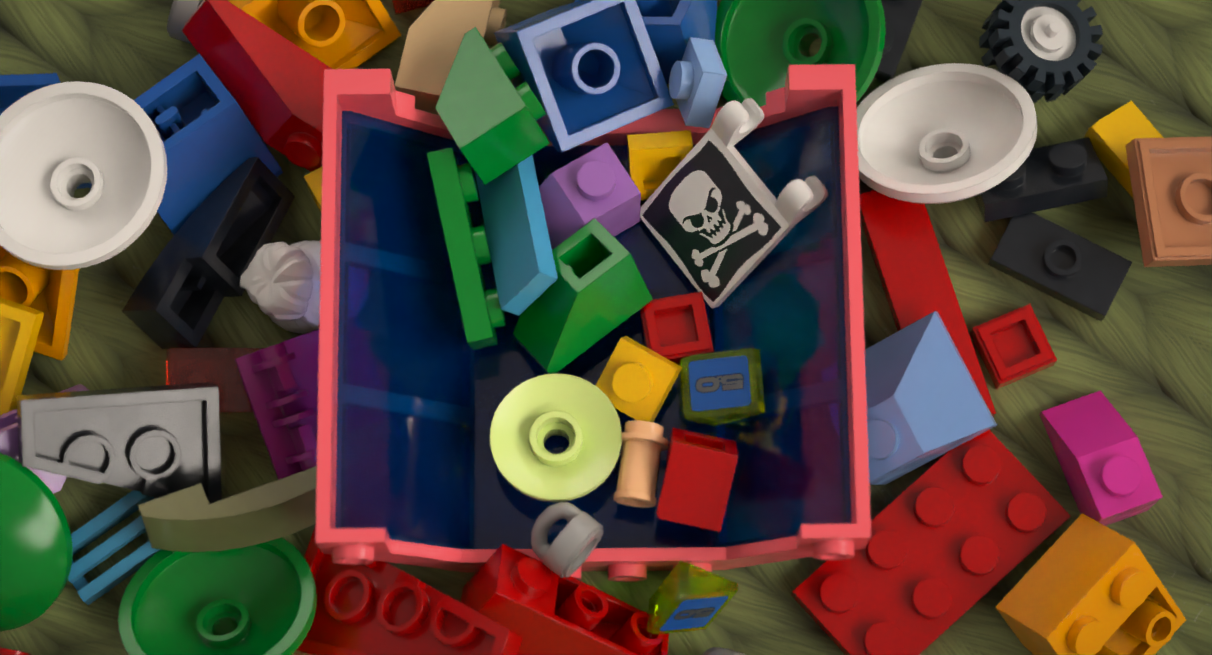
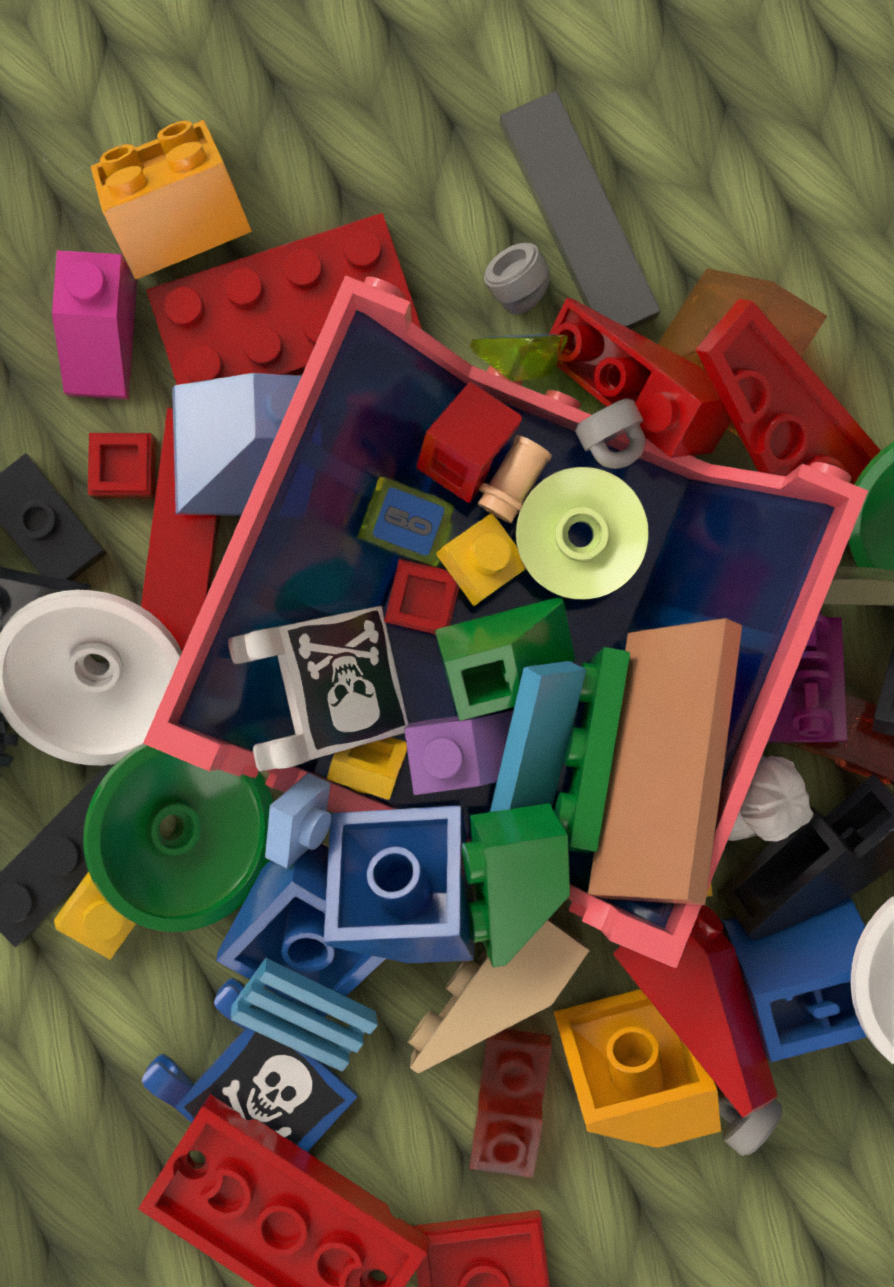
camera: 160 degrees left, 10 degrees up
(397, 248) = (668, 764): none -> nougat tile

